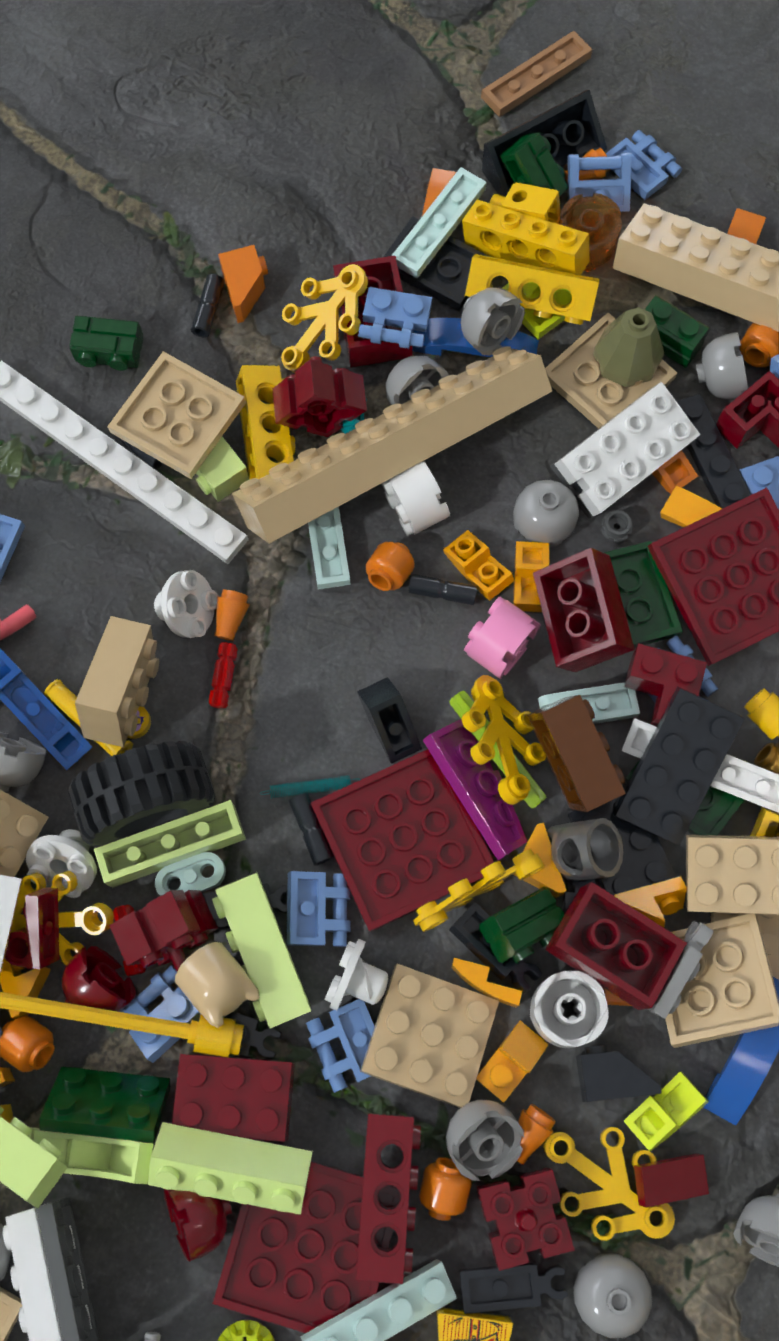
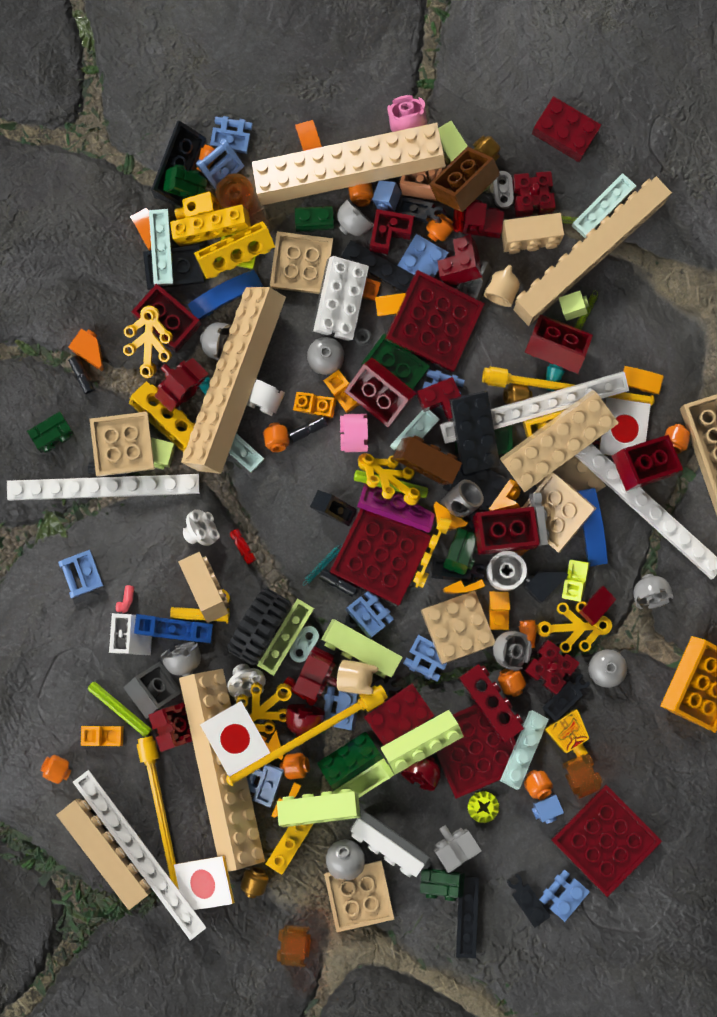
camera: 45 degrees left, 10 degrees up
(39, 933) = (263, 717): dark red plate -> none
(230, 613) = (222, 516): orange cone -> none
(358, 978) = (410, 628): white plate -> none
(395, 310) = (182, 312): medium blue plate -> none
(491, 318) = (228, 283): light grey cylinder -> none
(536, 73) = (139, 122): medium nougat plate -> none
(630, 348) = (303, 246): olive cone -> none

